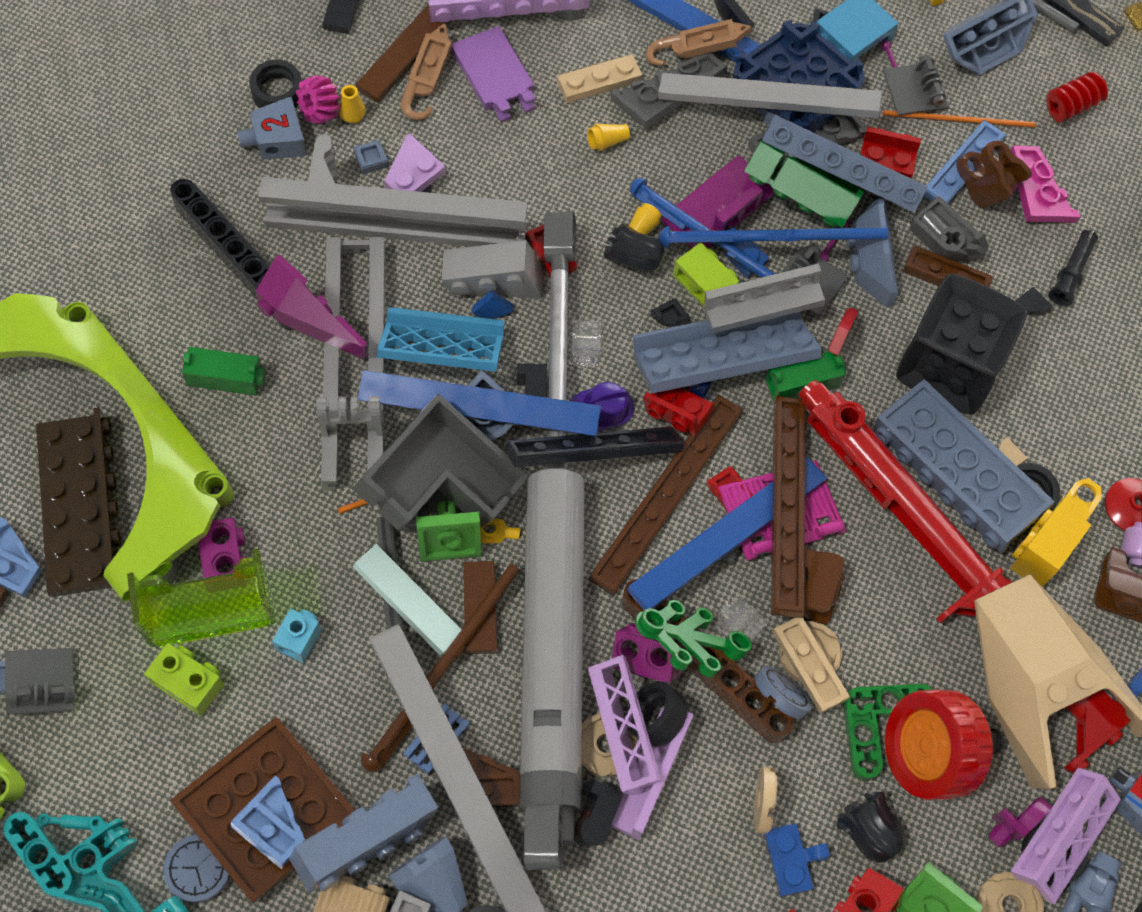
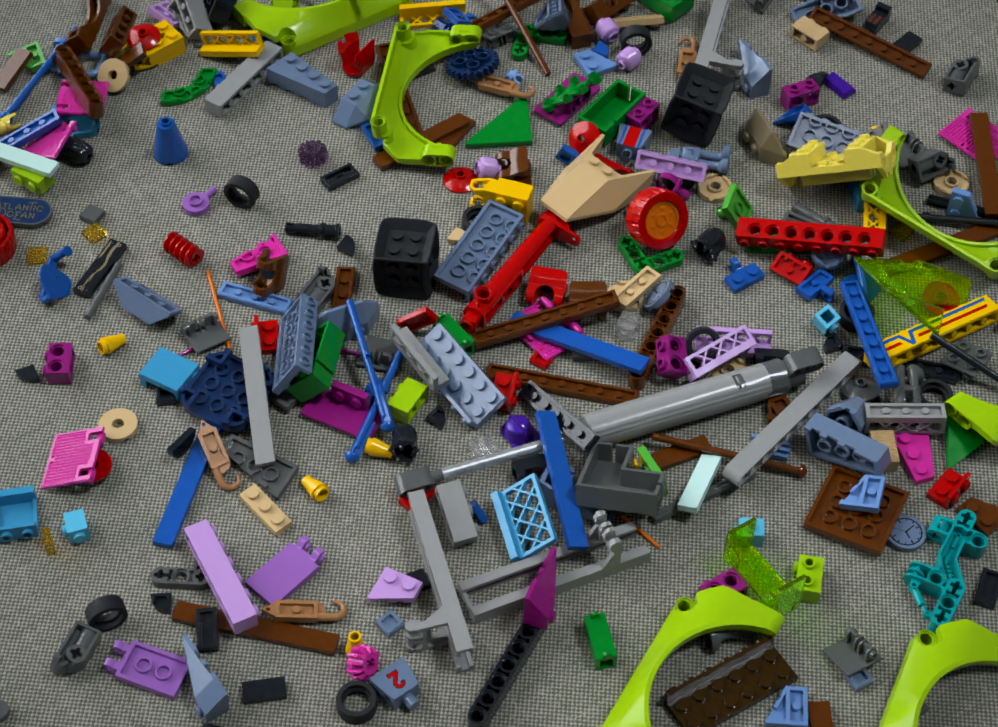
camera: 105 degrees left, 15 degrees down
(654, 625) = (662, 343): green plant -> none
(765, 799) = (732, 287): tan tile -> none
(866, 543) = (547, 281): none -> red piece

